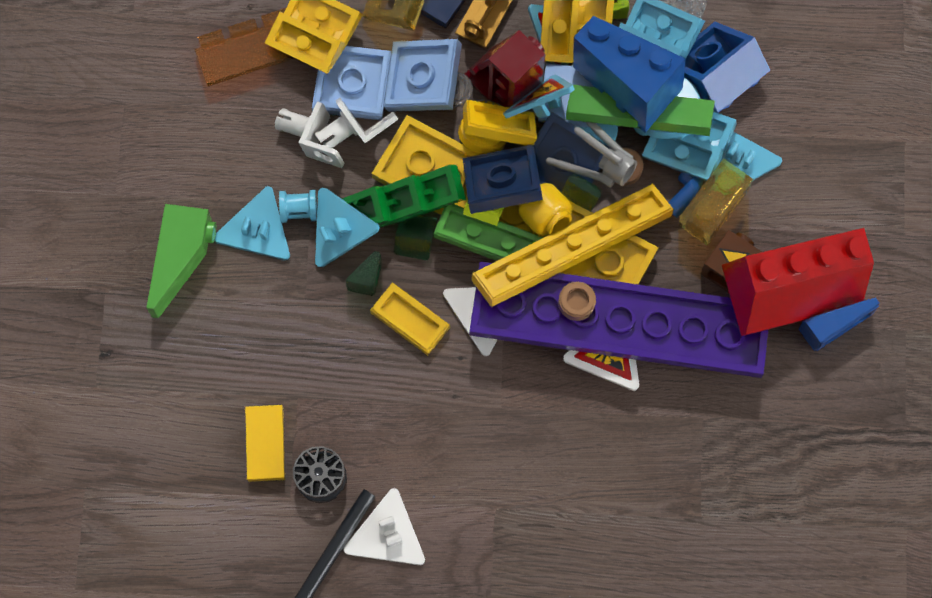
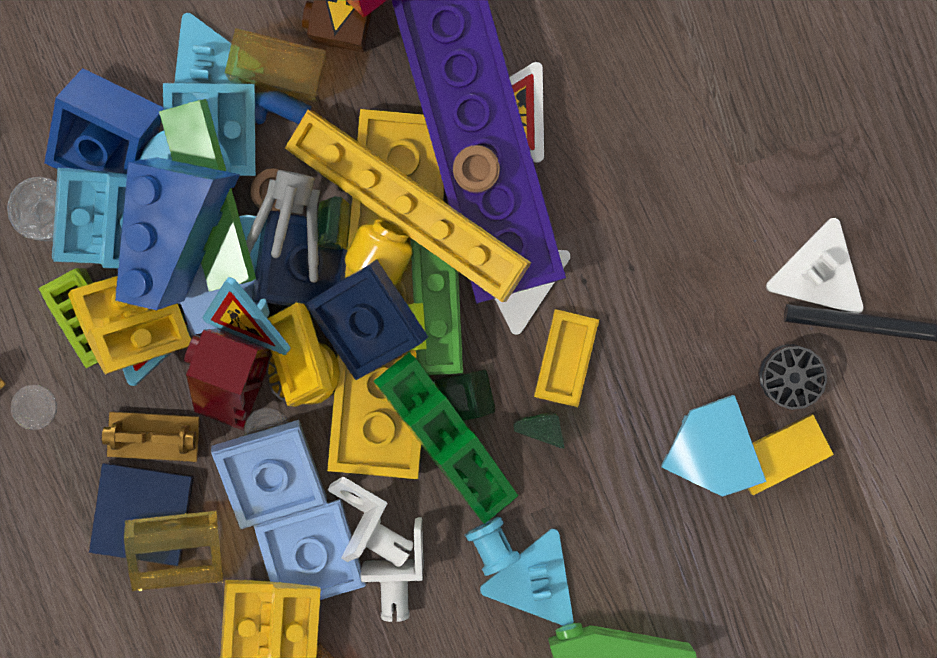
camera: 110 degrees left, 15 degrees up
(292, 393) = (715, 449): none -> medium azure slope
(339, 227) = (499, 486): medium azure piece -> none

